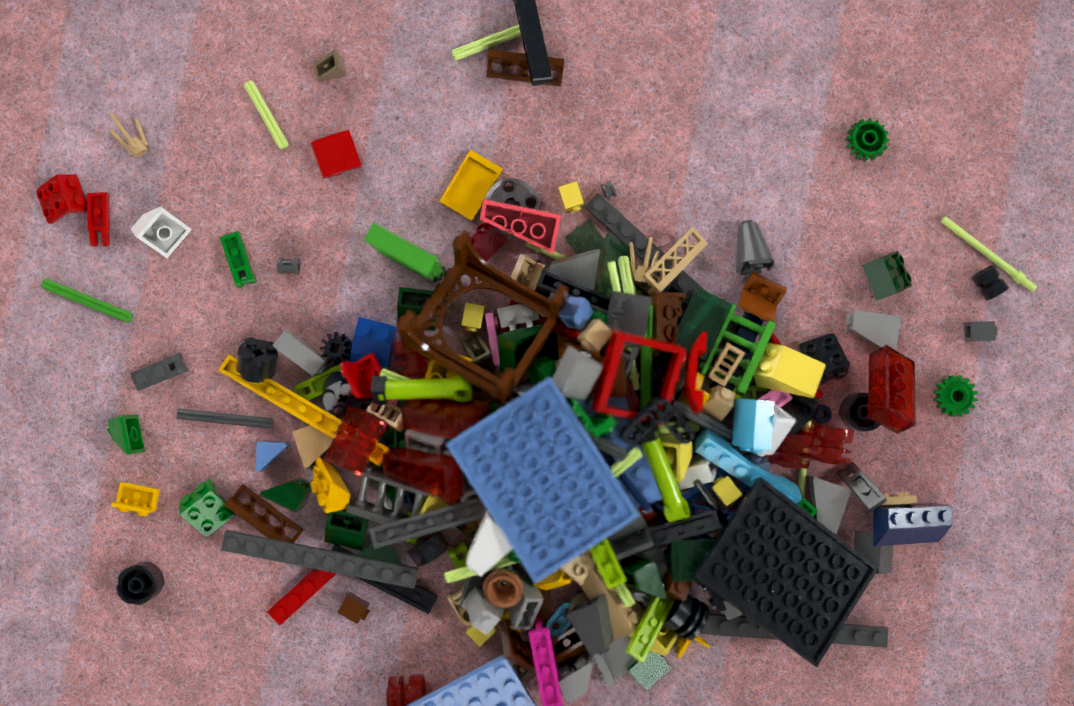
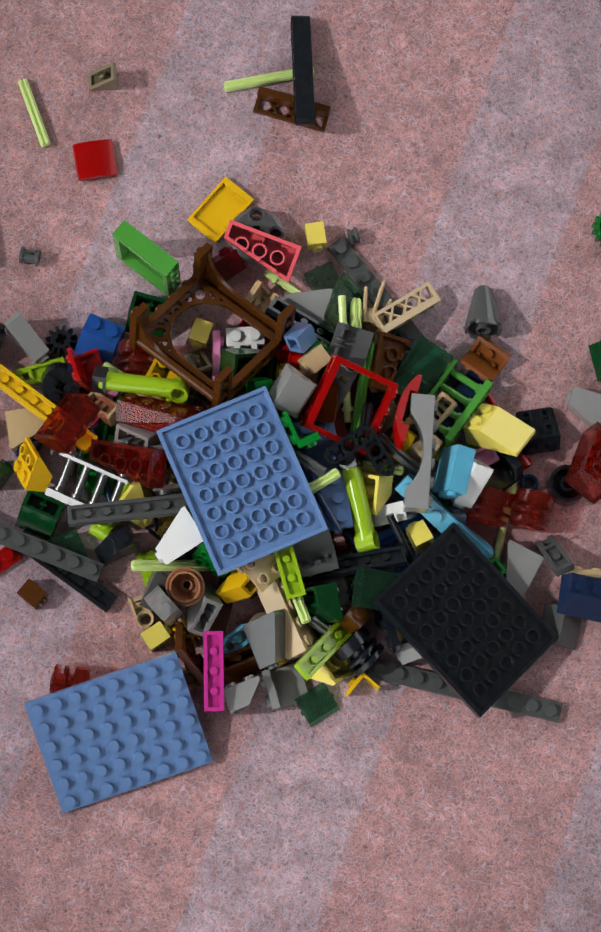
camera: 10 degrees right, 10 degrees down
(722, 455) = (422, 415): none -> light grey arch

